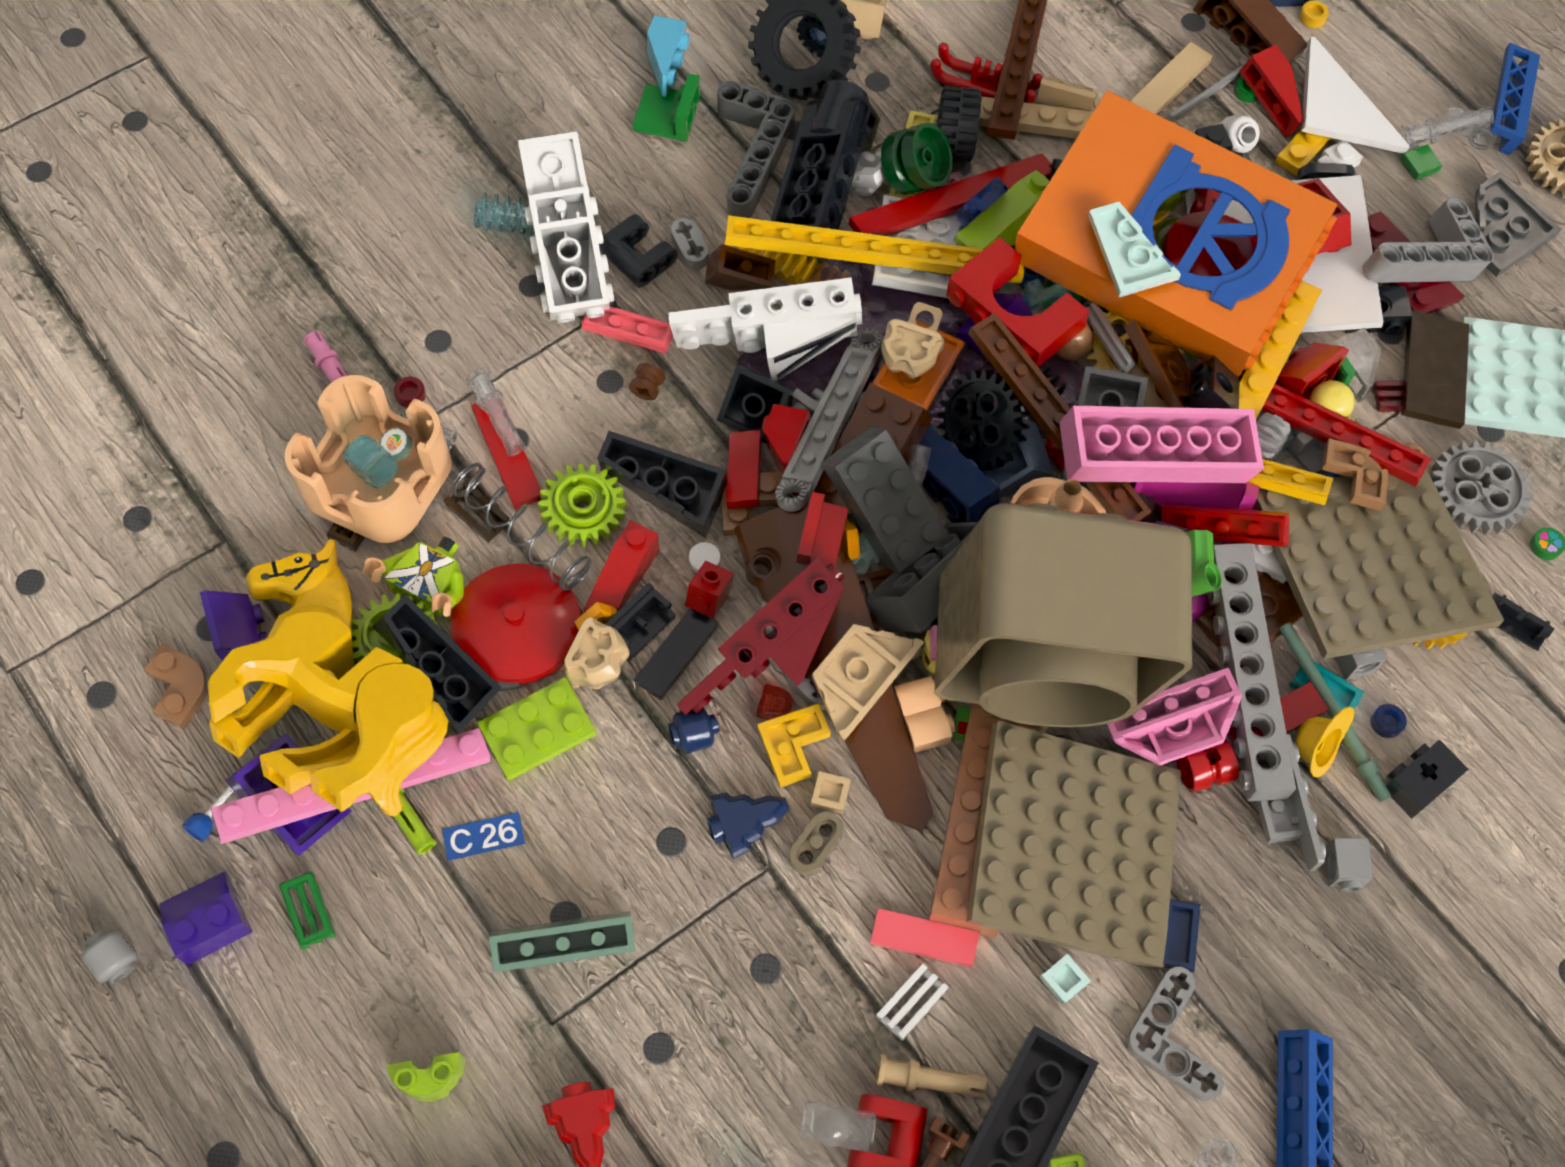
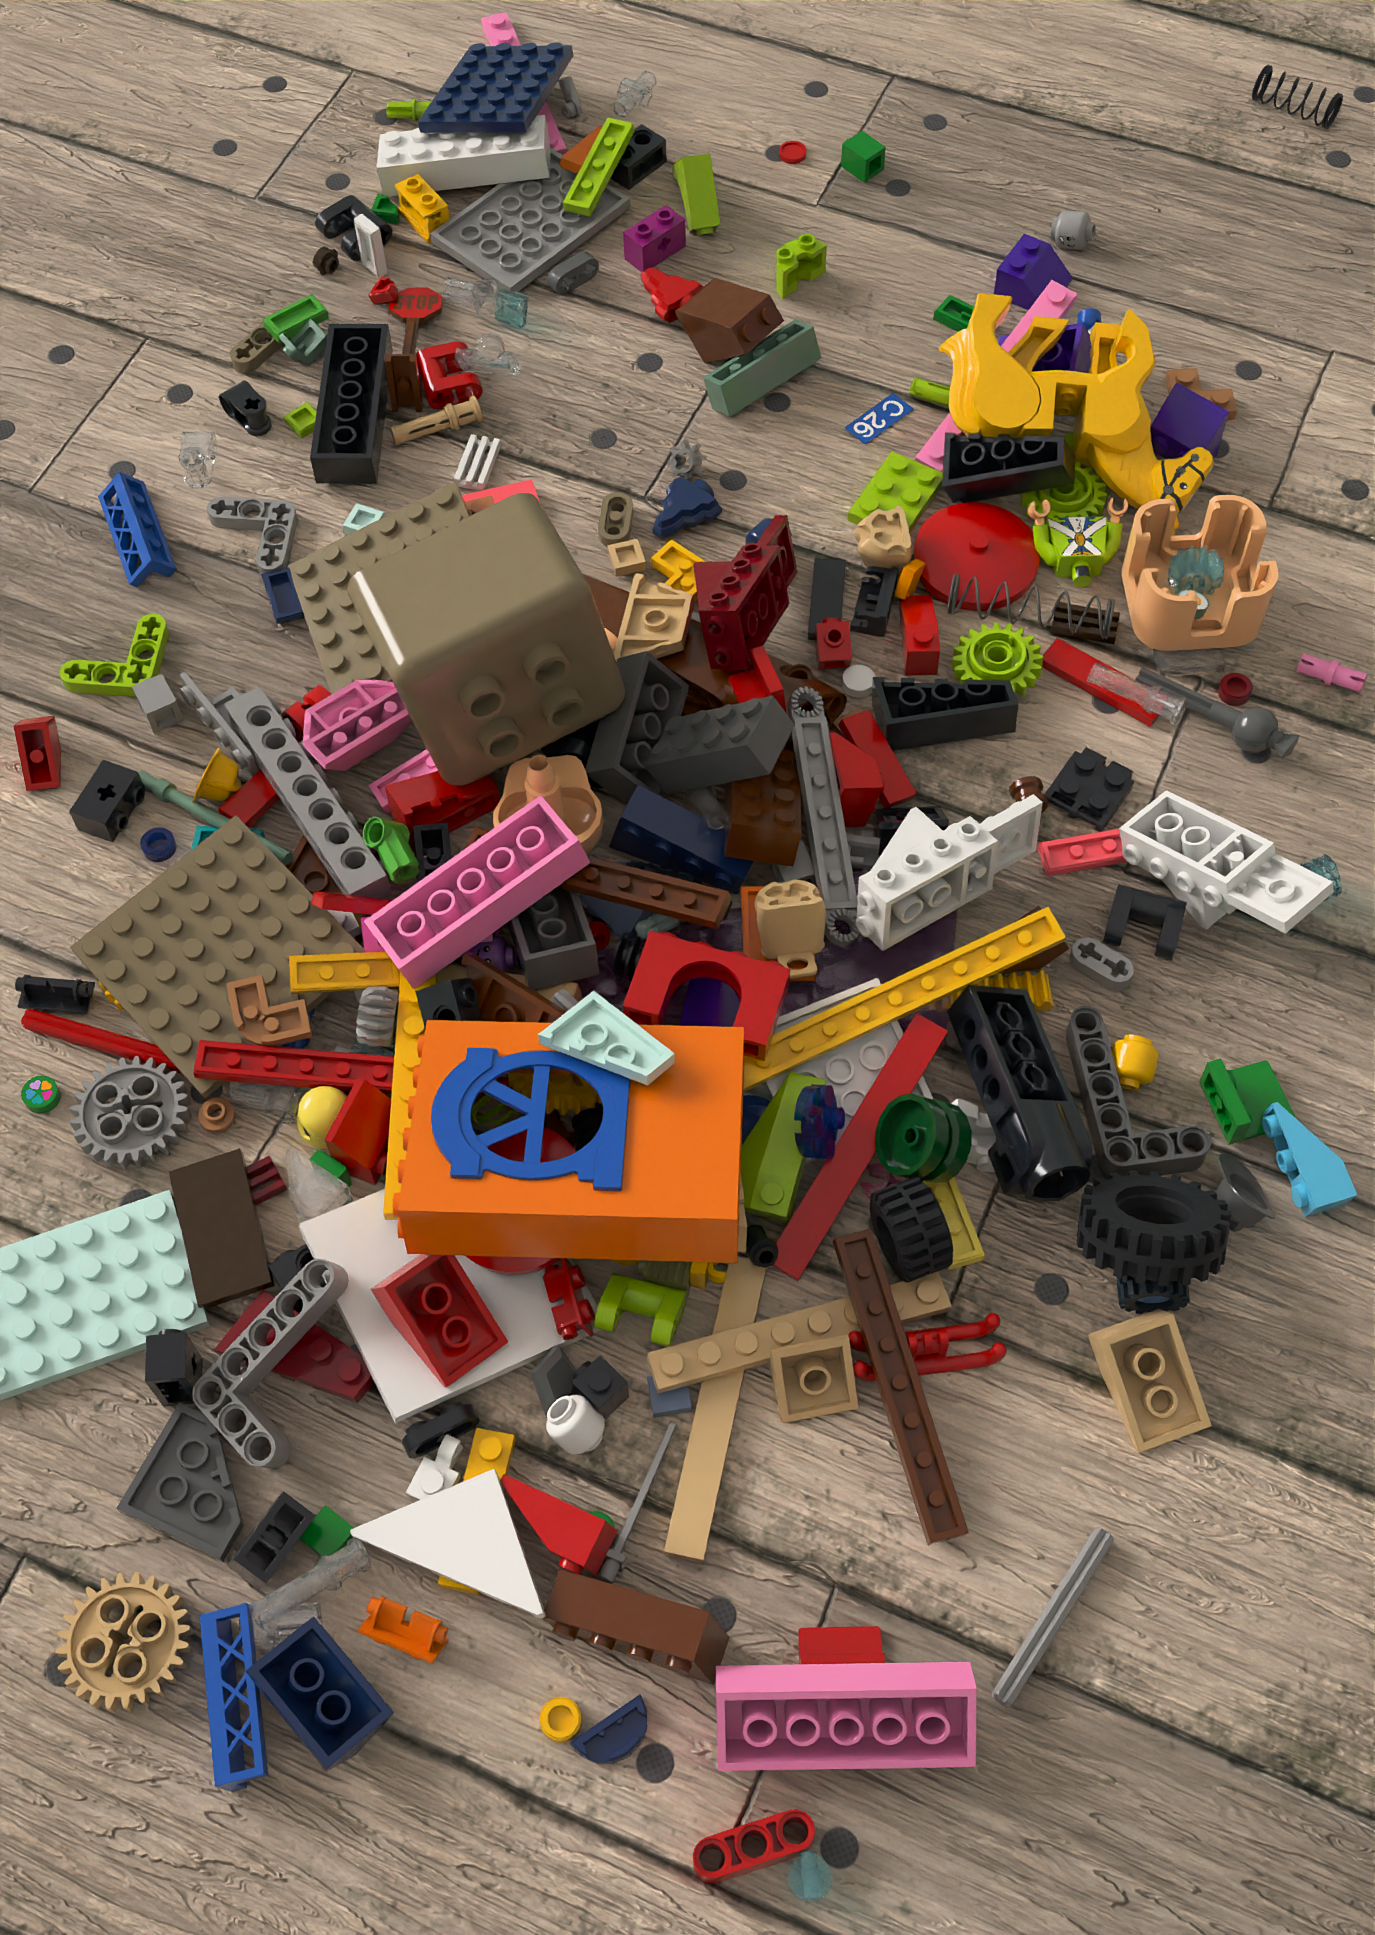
camera: 155 degrees right, 5 degrees down
(434, 341) = (1252, 729): none -> dark grey piece
(562, 1006) = (727, 319): none -> reddish brown slope
(589, 373) = (1091, 787): none -> black plate
(708, 871) = (678, 460): none -> light grey gear
(722, 57) = (1242, 1194): none -> dark grey piece
(722, 165) = (1135, 1061): none -> yellow head
(1367, 924) = (125, 673): none -> lime beam
(1393, 87) = (420, 1638): none -> orange hinge
(1464, 68) = (320, 1694): none -> dark blue slope
(1464, 160) = (271, 1540): none -> black brick
(1477, 869) = (39, 752): none -> red slope
(1501, 280) = (172, 1367): none -> black brick
(1506, 578) = (94, 1037): none -> red axle

